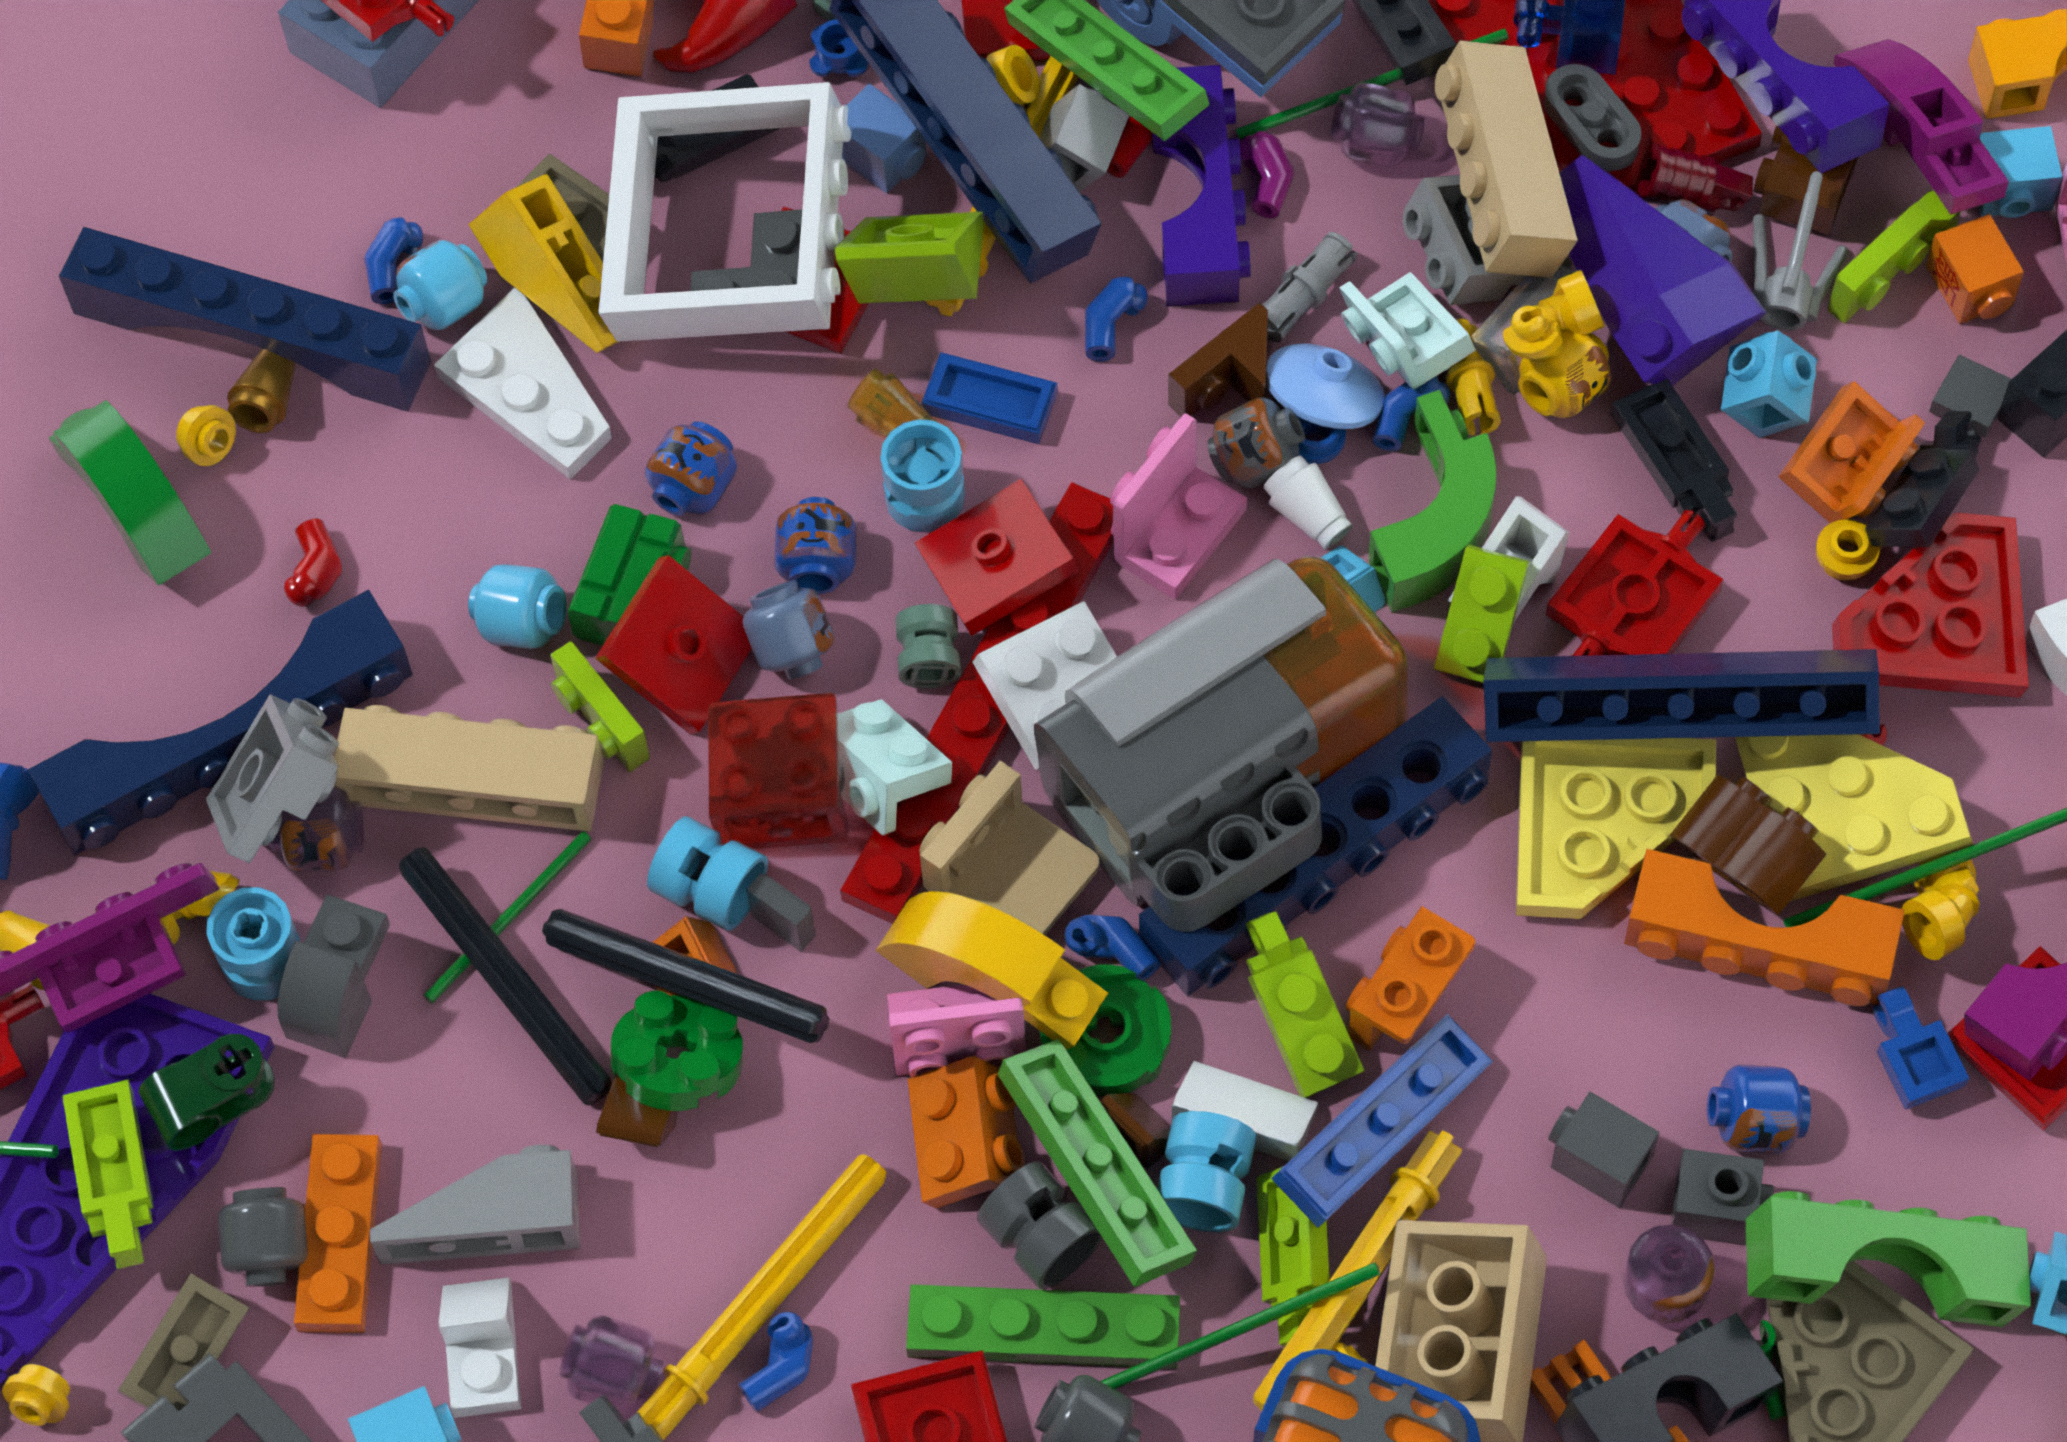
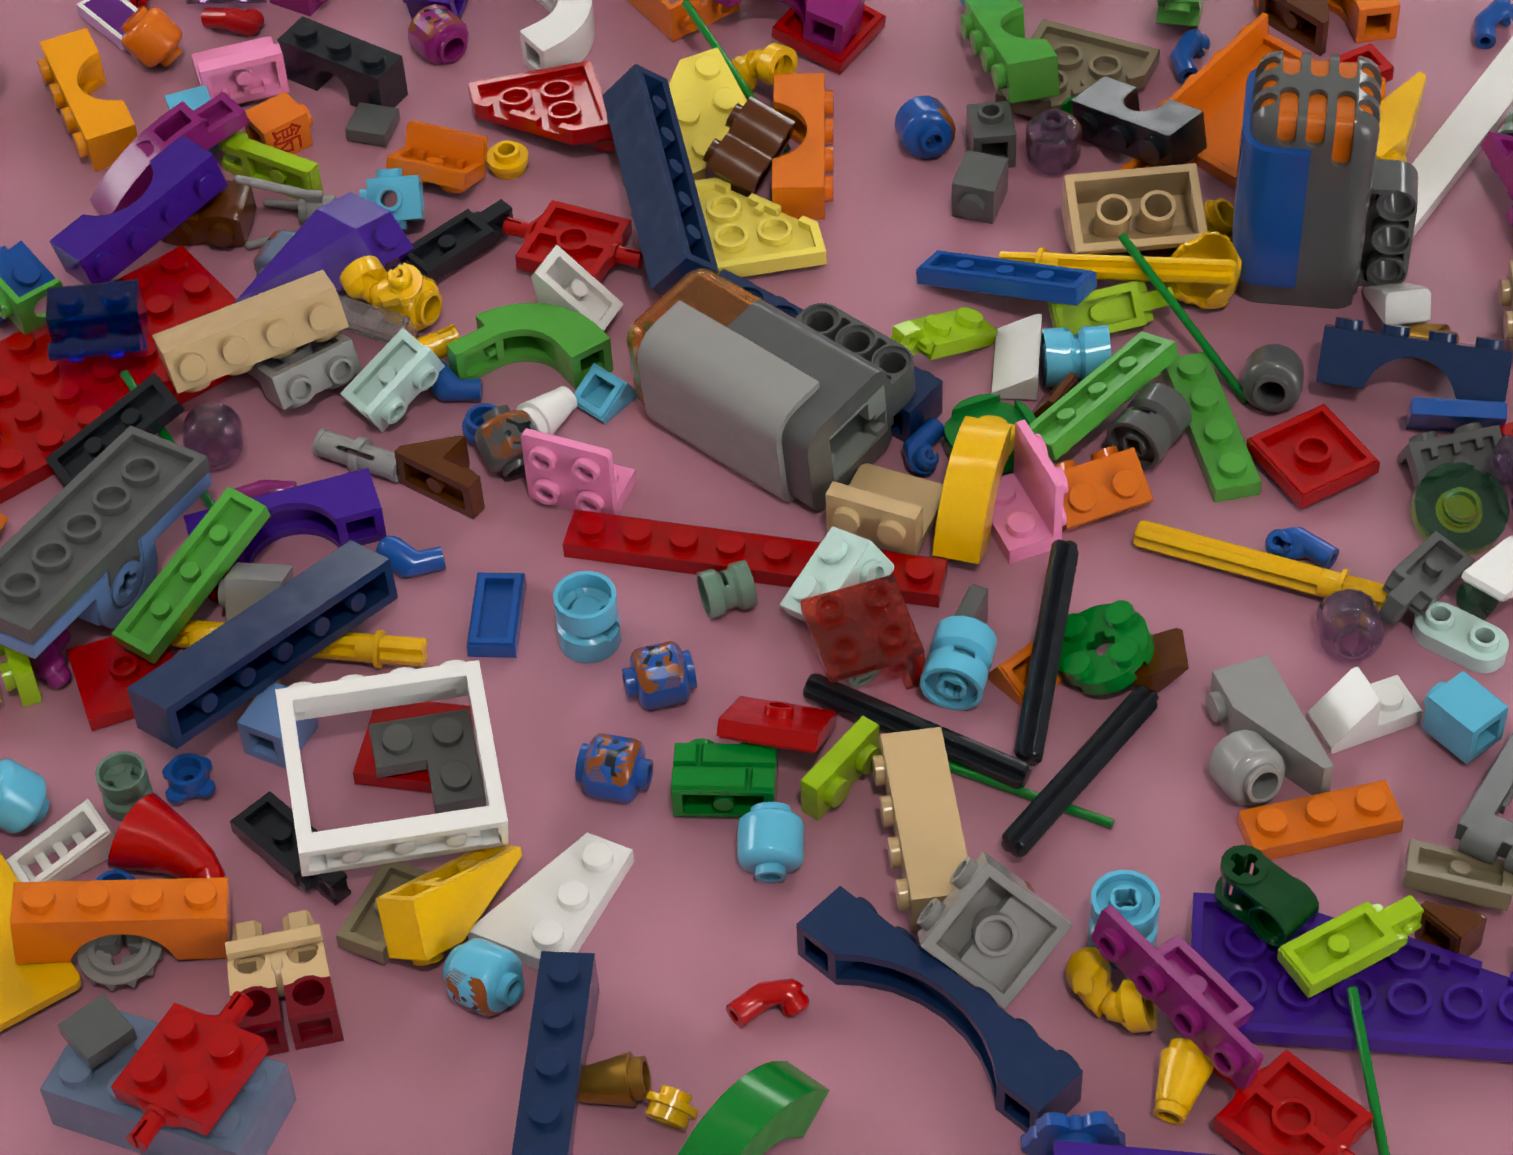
camera: 105 degrees left, 15 degrees down
(109, 1307) = (1451, 928): none -> reddish brown slope
(262, 1235) = (1349, 852): dark grey head -> none
(324, 977) = (1143, 846): dark grey brick -> none
(381, 257) = (456, 1038): blue arm -> none
(428, 1156) = (1247, 767): none -> light grey head
(508, 96) = (287, 966): none -> hips
(614, 832) = (893, 719): none -> black axle
(788, 629) = (741, 665): sand blue head -> none
(885, 403) = (525, 662): clear yellow cone -> none
(913, 257) = (391, 635): lime slope -> none
(996, 557) = (645, 561): red plate -> none
(1038, 665) = (737, 506): white plate -> none
(1324, 386) = (449, 416): light blue dish -> none
(1409, 981) = (901, 284): orange bracket -> none
(1481, 612) = (609, 296): lime plate -> none
(1596, 121) = (195, 301): dark grey plate -> none
(1679, 175) = (233, 267): dark red hinge -> none
(1916, 1056) = (859, 71): blue plate -> none
(1928, 486) = (474, 115): black hinge -> none

